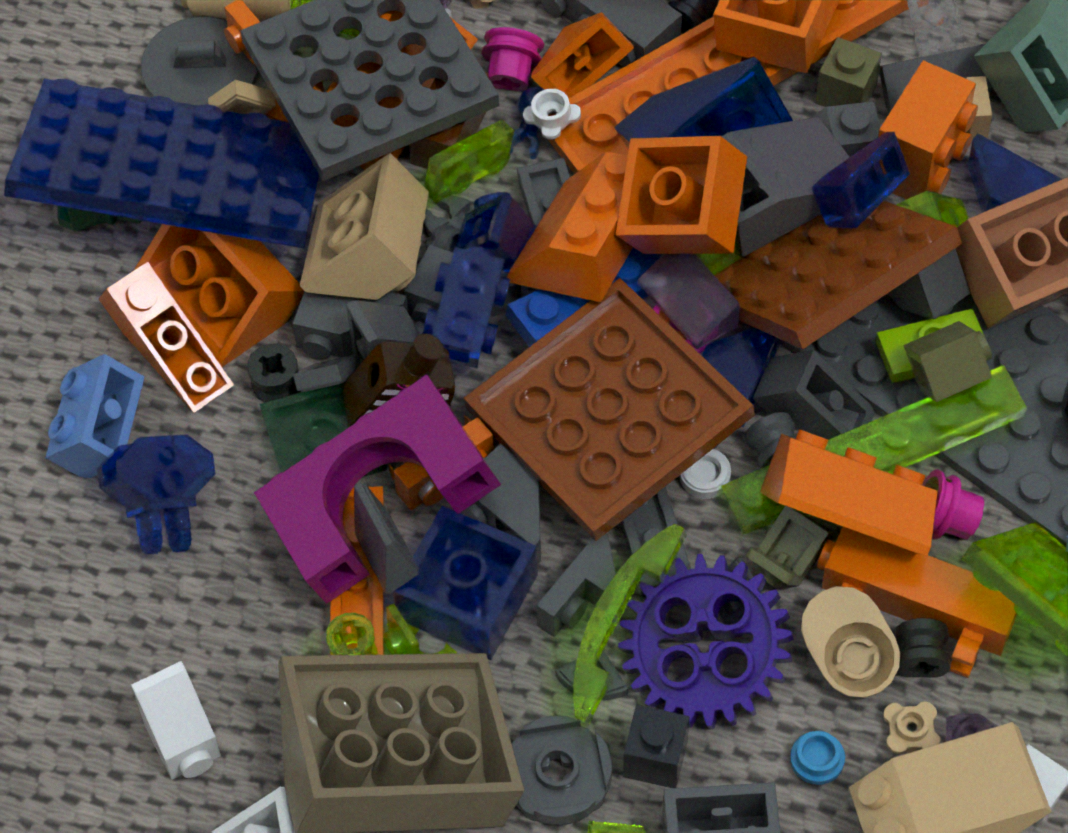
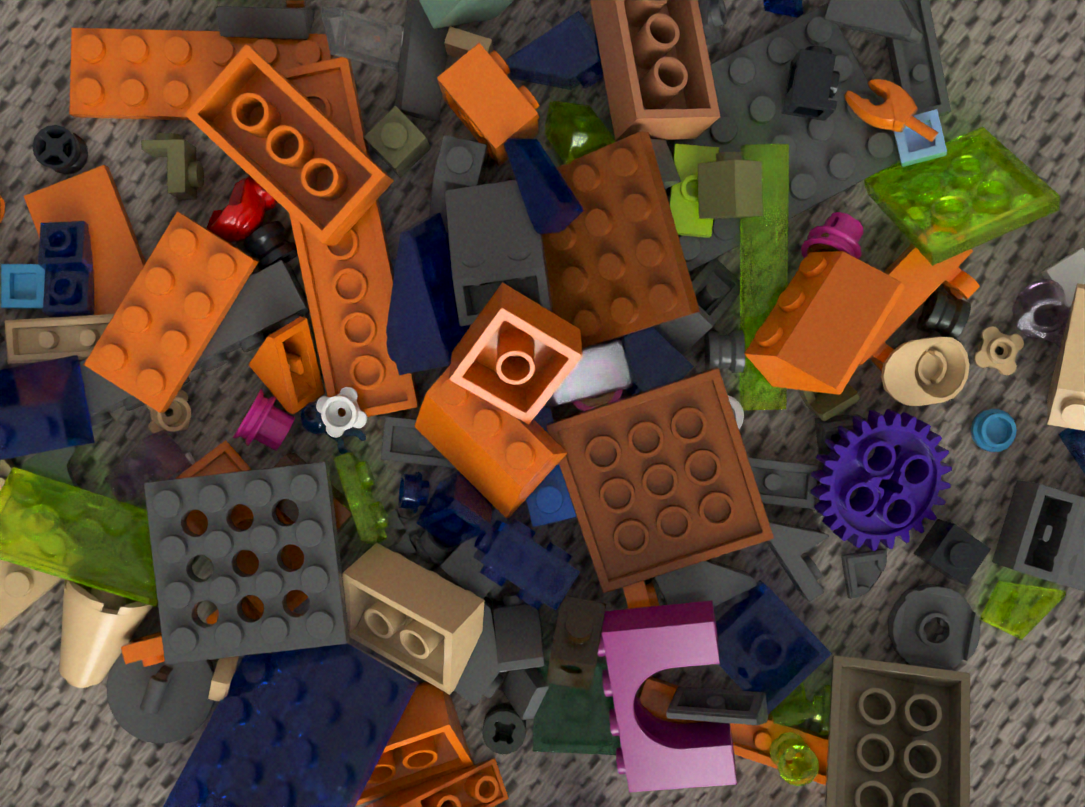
camera: 75 degrees left, 30 degrees up
(651, 559) = (829, 512): clear neon green slope -> none

